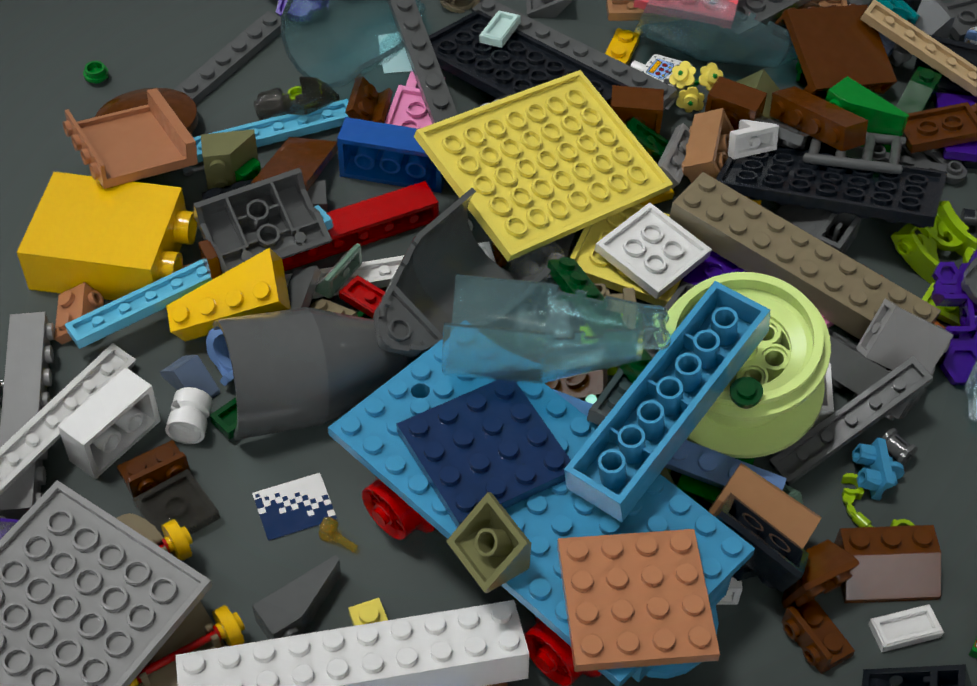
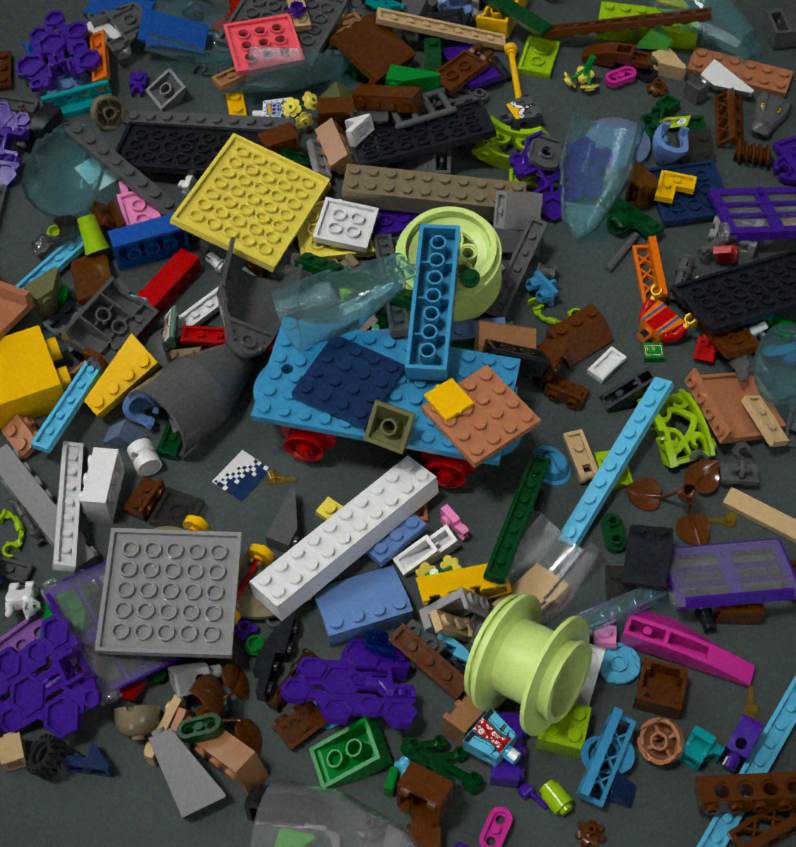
camera: 30 degrees left, 5 degrees up
(330, 114) = (92, 235): none -> lime plant
(500, 29) = (156, 128): light aqua tile -> none
(600, 549) = (448, 399): none -> yellow piece

